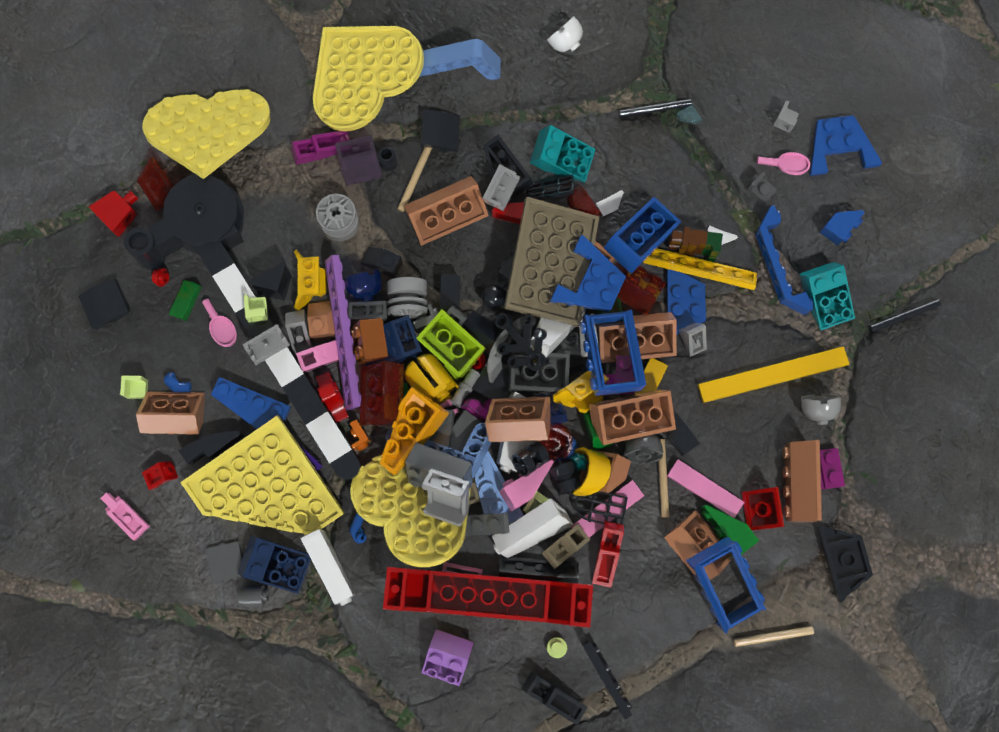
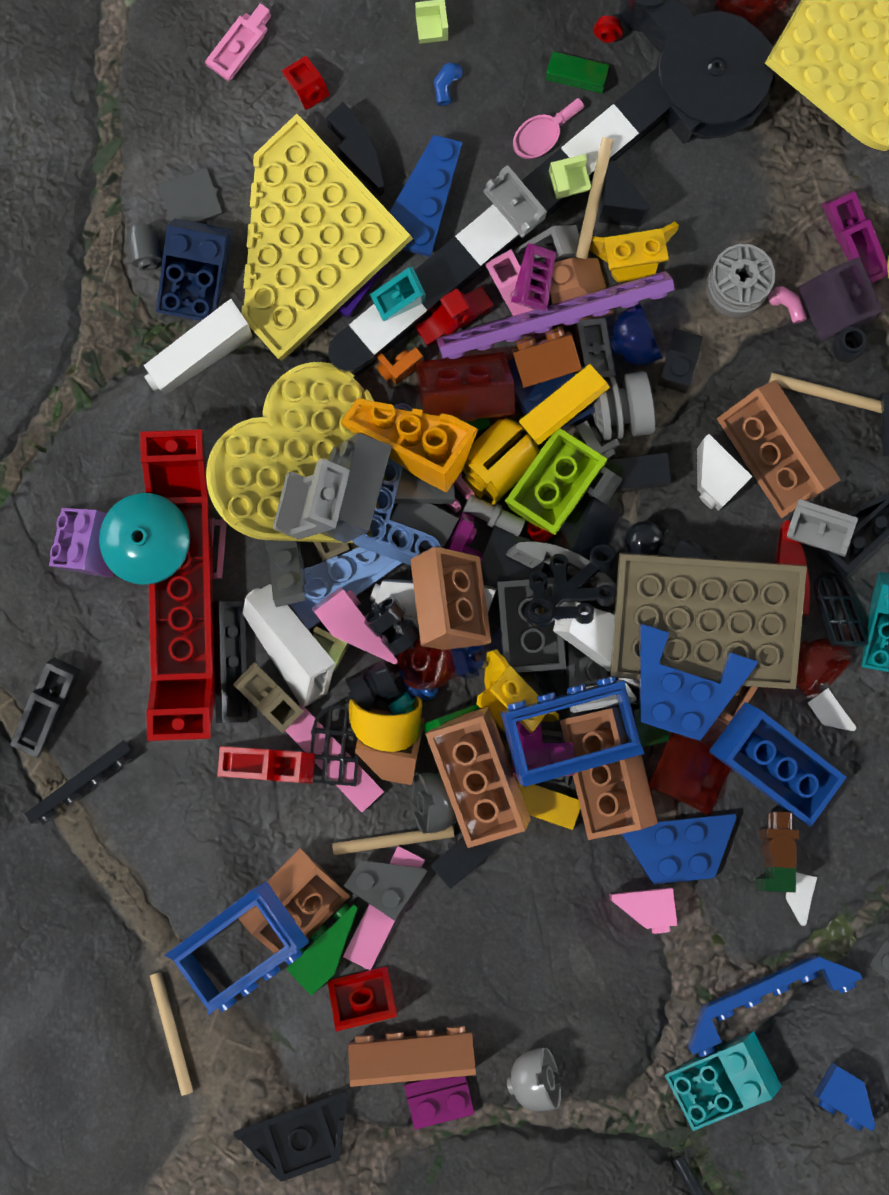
camera: 85 degrees right, 5 degrees up
(171, 413) = (400, 82): nougat slope -> none
(271, 296) = (594, 197): none -> tan bar
(315, 426) = (399, 295): none -> teal slope
(321, 348) = (523, 286): none -> magenta slope
(356, 189) = (791, 300): none -> bright pink arm
(356, 531) = (256, 383): blue arm -> none
(402, 332) = (564, 404): none -> yellow tile
(452, 601) = (163, 542): none -> teal dish
(457, 247) = (718, 474): none -> white slope
(557, 647) = (118, 703): yellowish green plate -> none
(692, 485) = (385, 885): none -> dark grey wing
(694, 338) = (621, 866): light grey slope -> none
(702, 268) = (740, 872): yellow tile -> none
(719, 323) = (649, 907): none -> bright pink slope
(773, 374) = (581, 1003): yellow tile -> none

